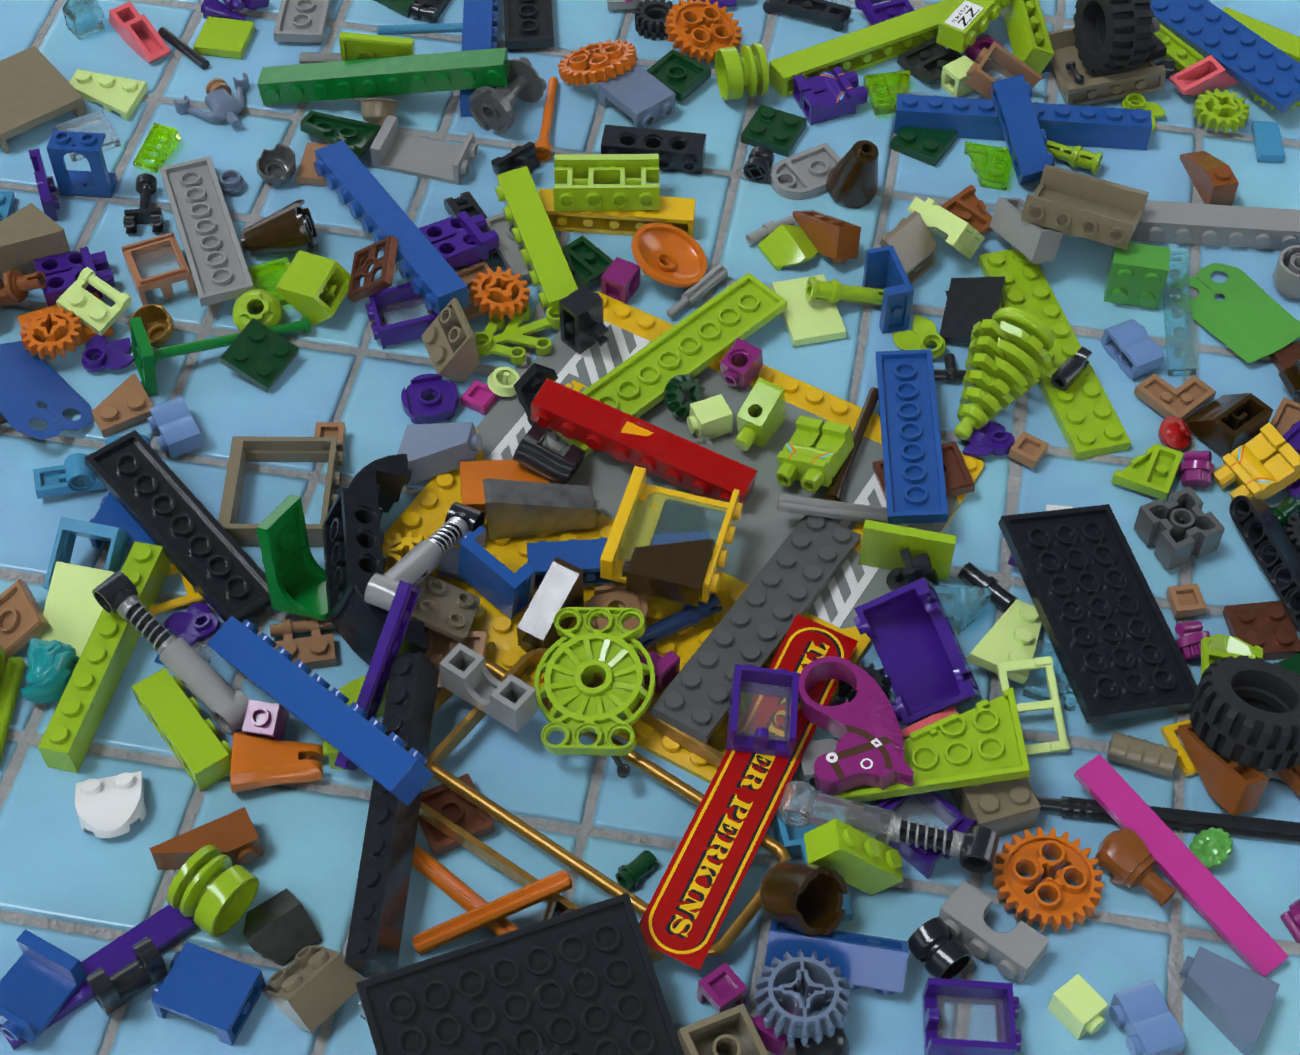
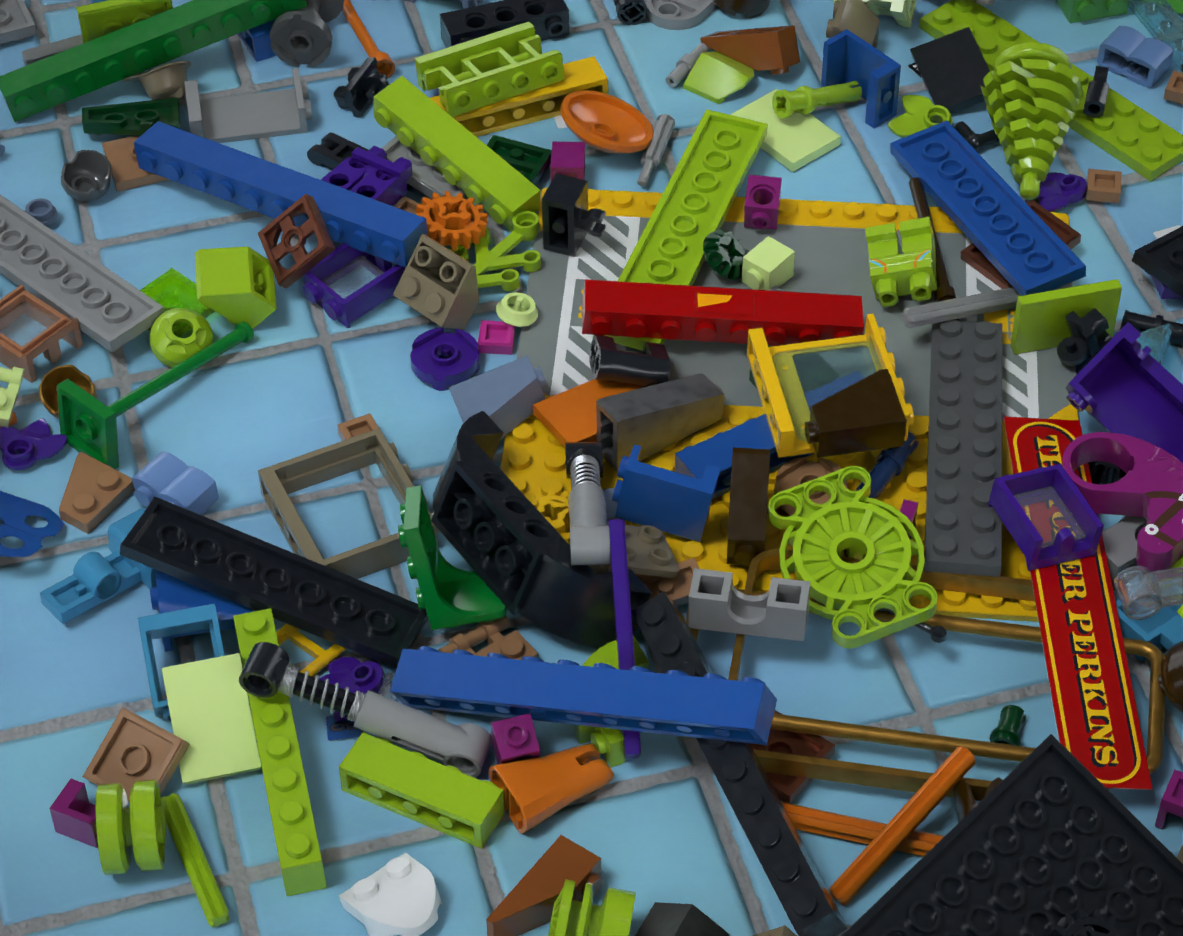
camera: 25 degrees left, 5 degrees down
(48, 670) = (223, 790): teal hair -> none
(259, 355) = (218, 379): dark green plate -> none
(282, 232) = (150, 242): dark brown cone -> none
(530, 384) = (556, 299): black bracket -> none
(760, 415) = (822, 253): lime torso -> none

